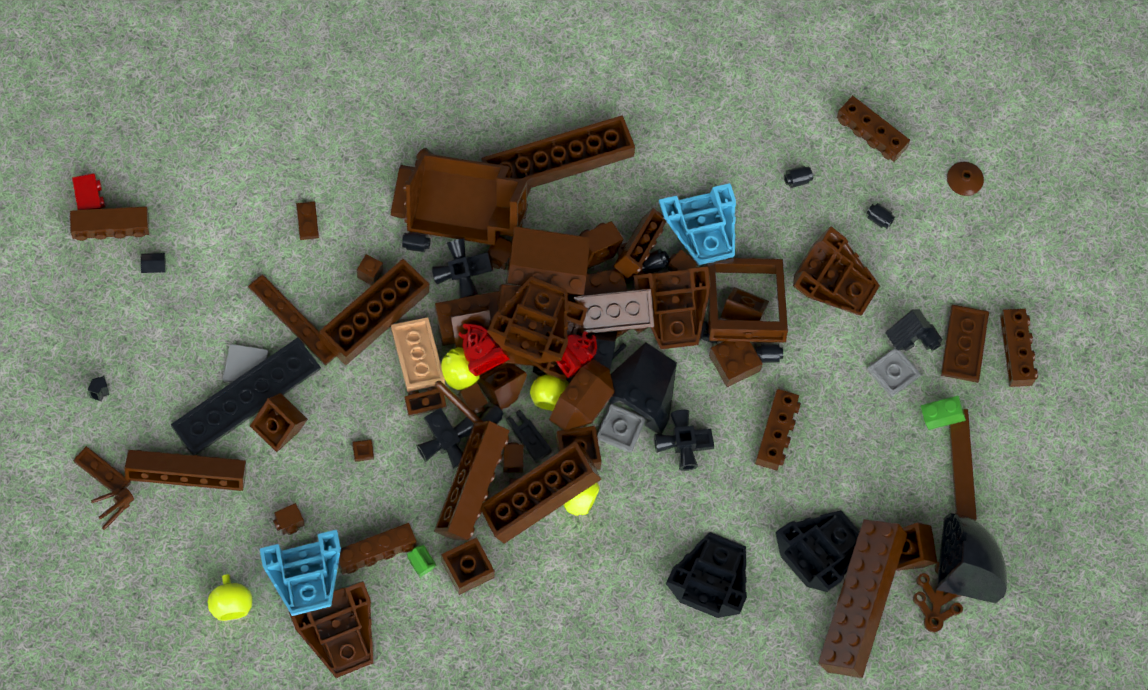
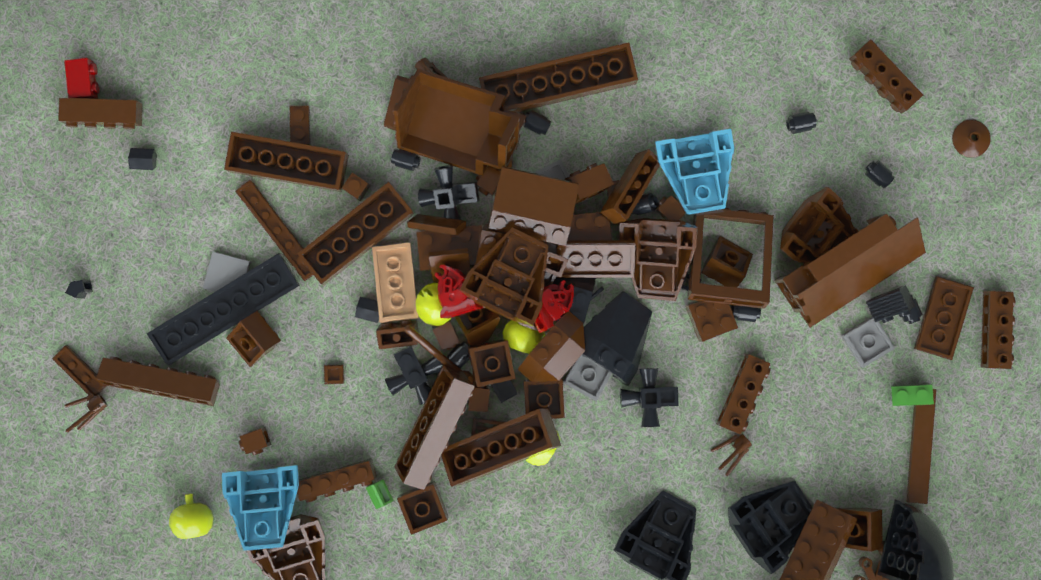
camera: 10 degrees right, 20 degrees up
(299, 252) = (286, 161): none -> reddish brown brick
(392, 383) = (367, 310): none -> black piece
(454, 294) = (436, 224): none -> reddish brown tile
(522, 415) = (491, 362): none -> reddish brown brick
(541, 197) = (537, 122): none -> black brick
(780, 479) = (740, 446): none -> reddish brown plant
(864, 297) = (851, 267): none -> reddish brown panel

